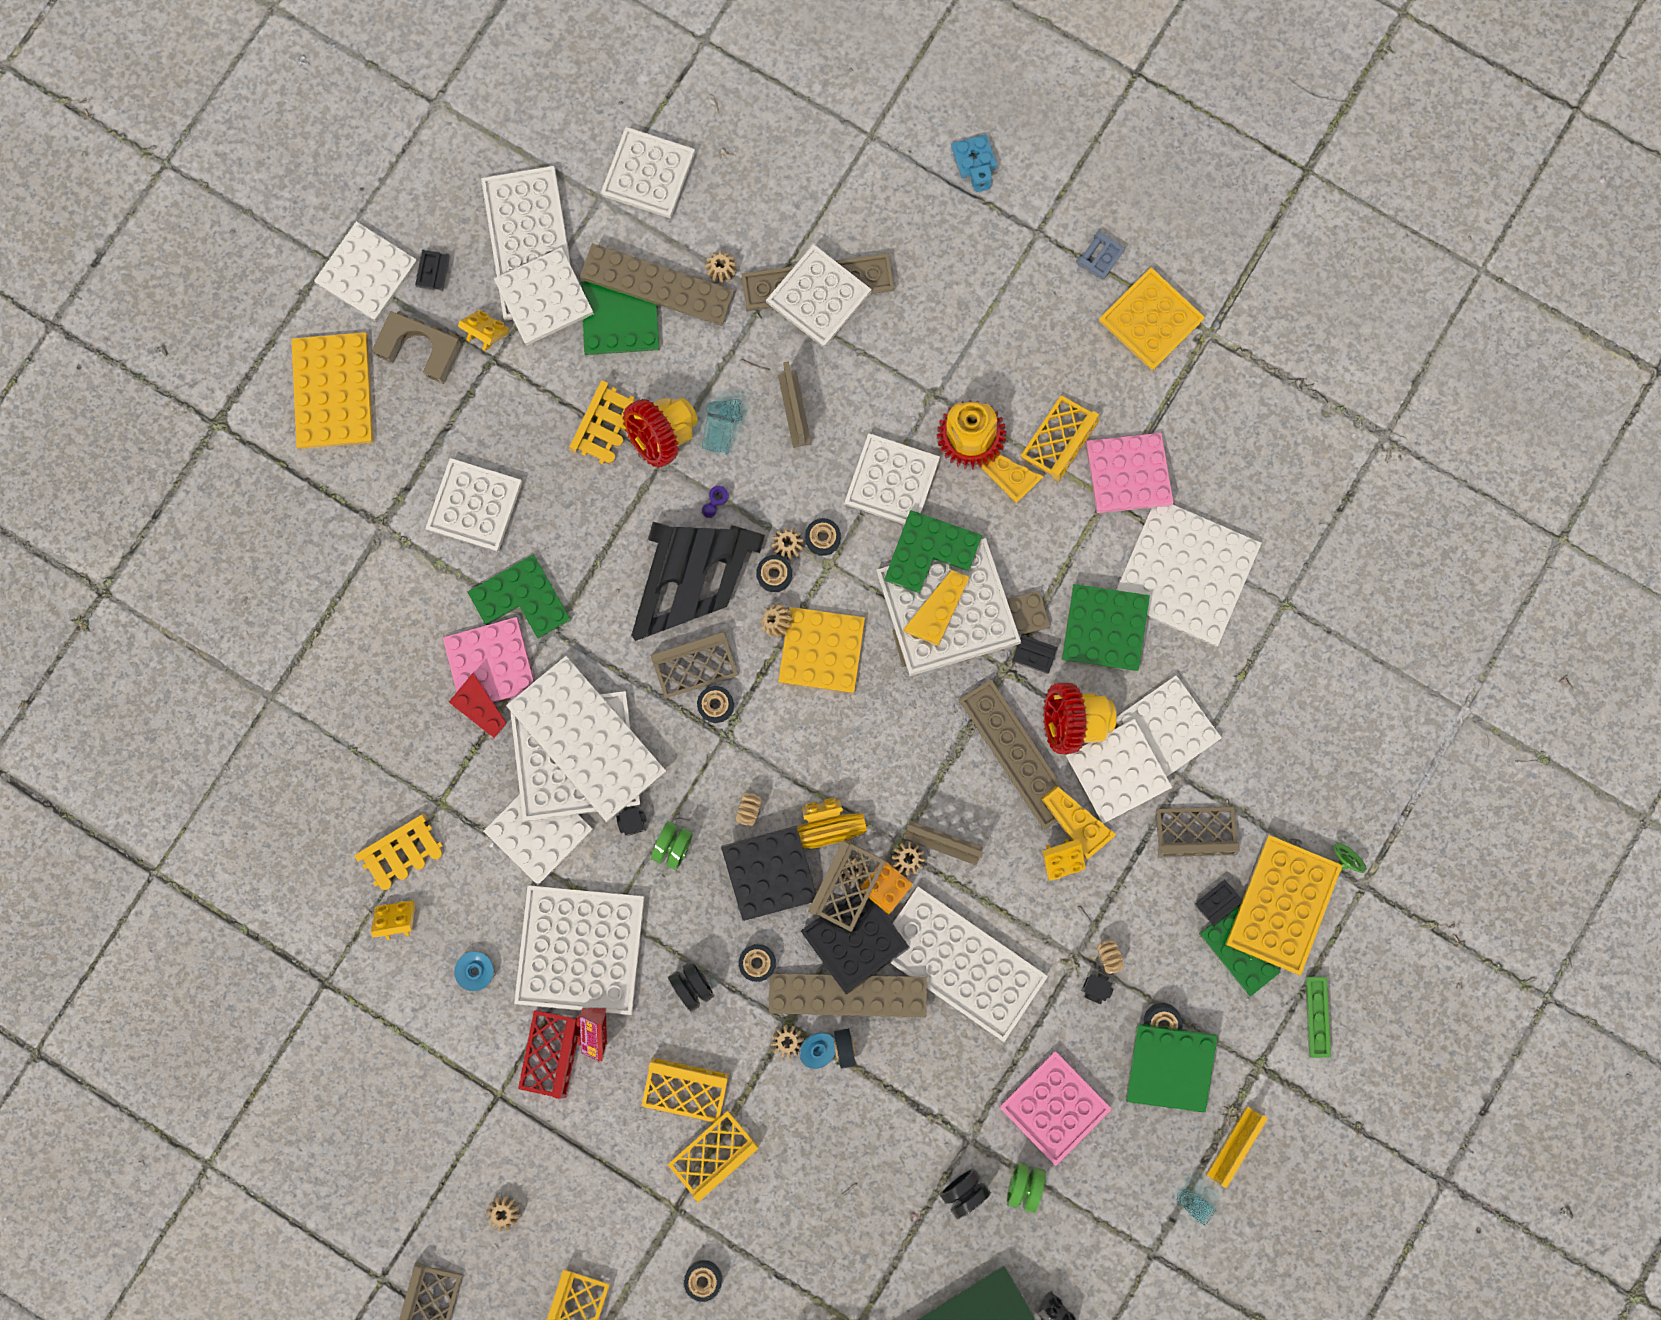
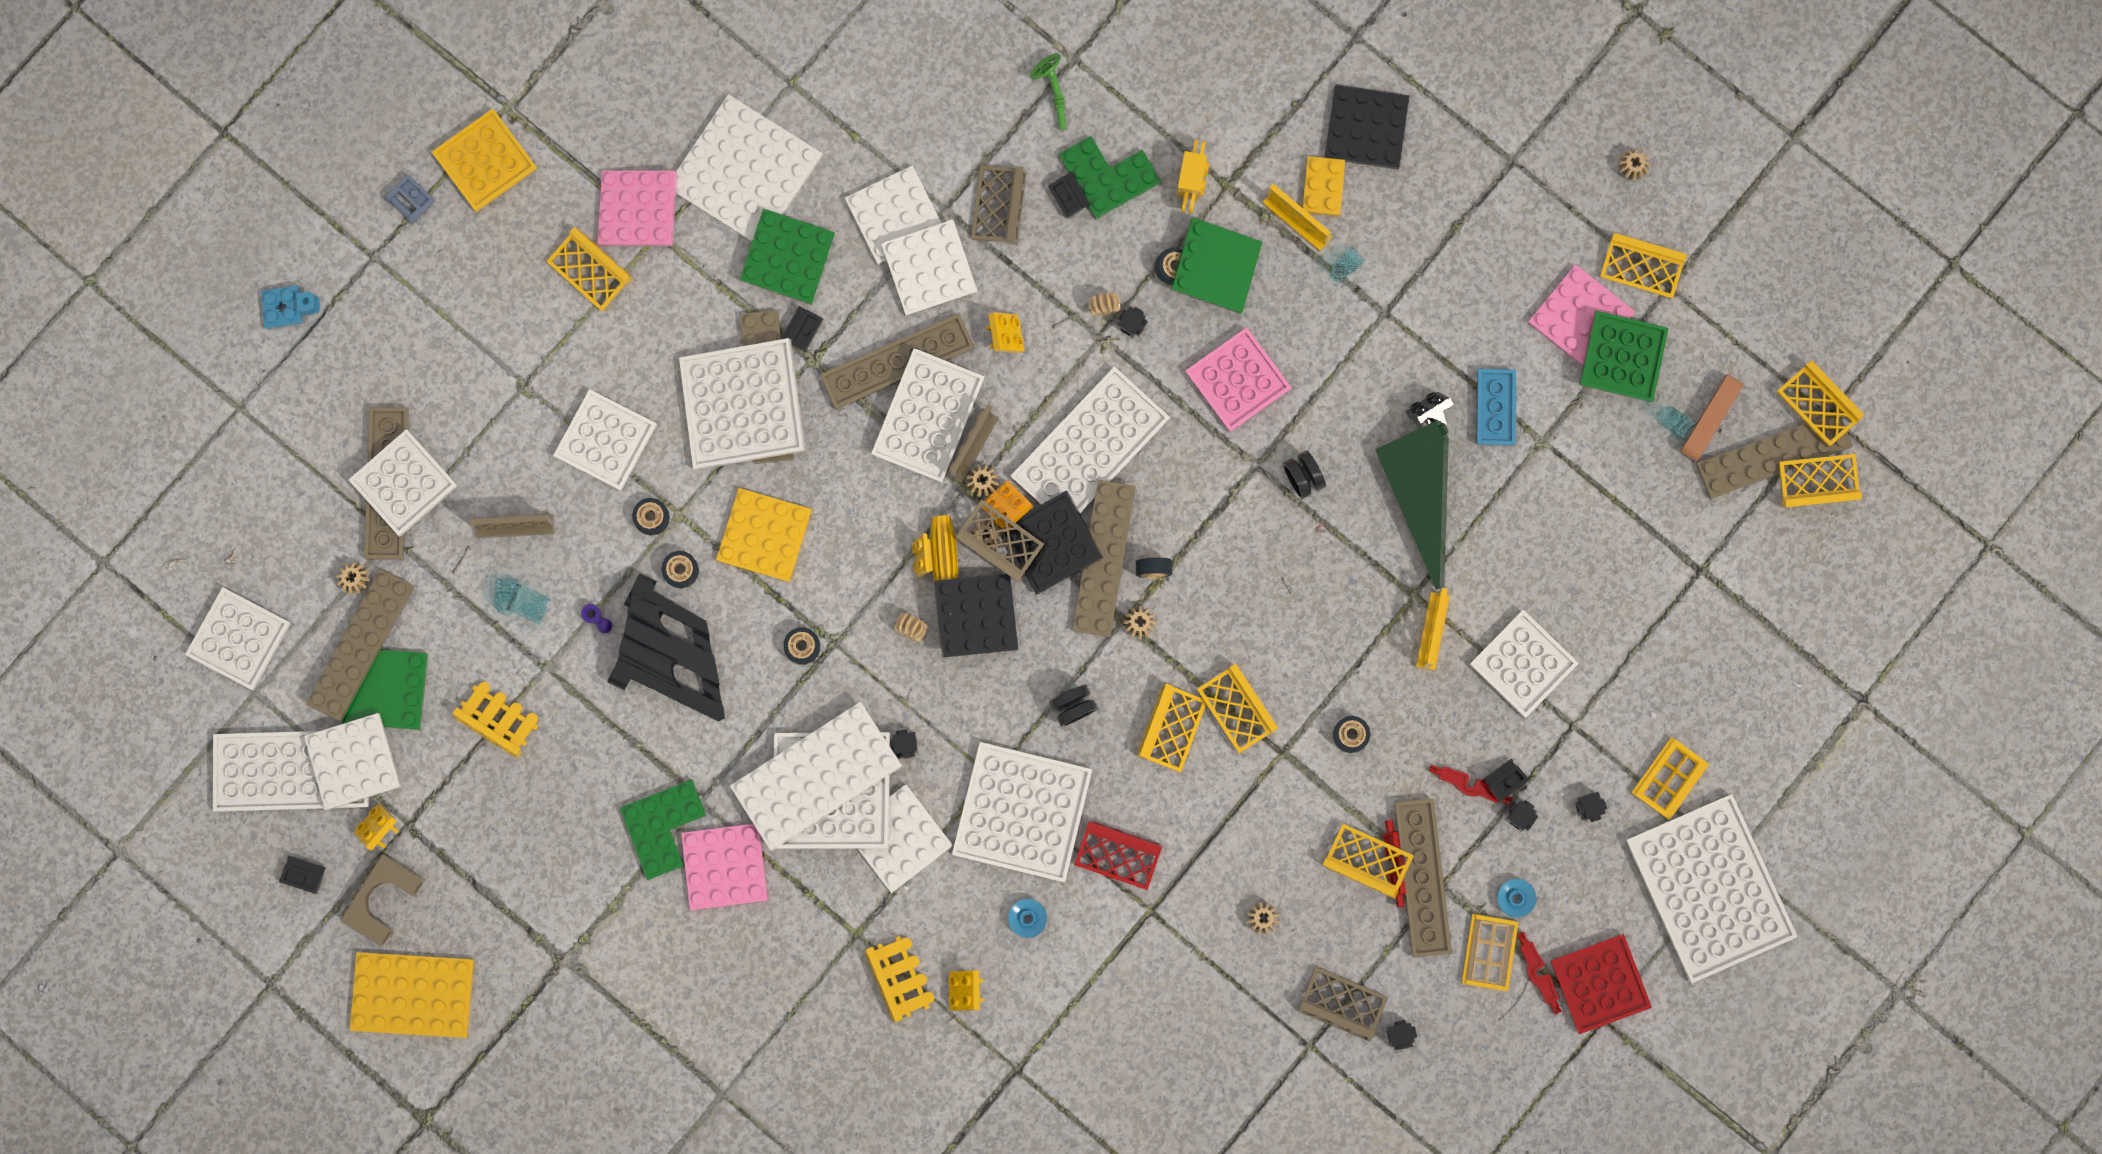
camera: 85 degrees left, 0 degrees up
(366, 271) = (290, 945): white plate -> none
(474, 505) = (558, 861): white plate -> none
(477, 706) = (765, 881): red wing -> none
(592, 1032) = (1103, 806): red slope -> none
(659, 428) = (514, 660): red piece -> none
(670, 844) = (936, 703): bright green wheel -> none
(687, 649) = (741, 662): dark tan fence -> none
(767, 958) = (1066, 631): wheel -> none
(776, 620) = (729, 580): tan gear -> none
(779, 543) = (644, 555): tan gear -> none
(817, 1050) = (1152, 594): dark azure dish -> none
(926, 540) = (672, 414): green plate -> none
(936, 613) = (746, 414): yellow wing -> none
(966, 793) = (927, 415): none -> white plate
(972, 434) = (571, 355): yellow piece -> none
(1011, 477) = (620, 325): yellow wing -> none
(1026, 1187) = (1306, 417): bright green wheel -> none
(1076, 718) = (872, 298): red piece -> none
(1077, 822) = (971, 313): yellow wing -> none
(1261, 1028) = (1191, 179): none -> yellow brick
(1276, 1169) = (1323, 186): none -> yellow plate
(1284, 905) = (1080, 135): yellow plate -> none
(1318, 1017) = (1189, 123): bright green plate -> none
(1348, 1207) = (1367, 126): none -> black plate

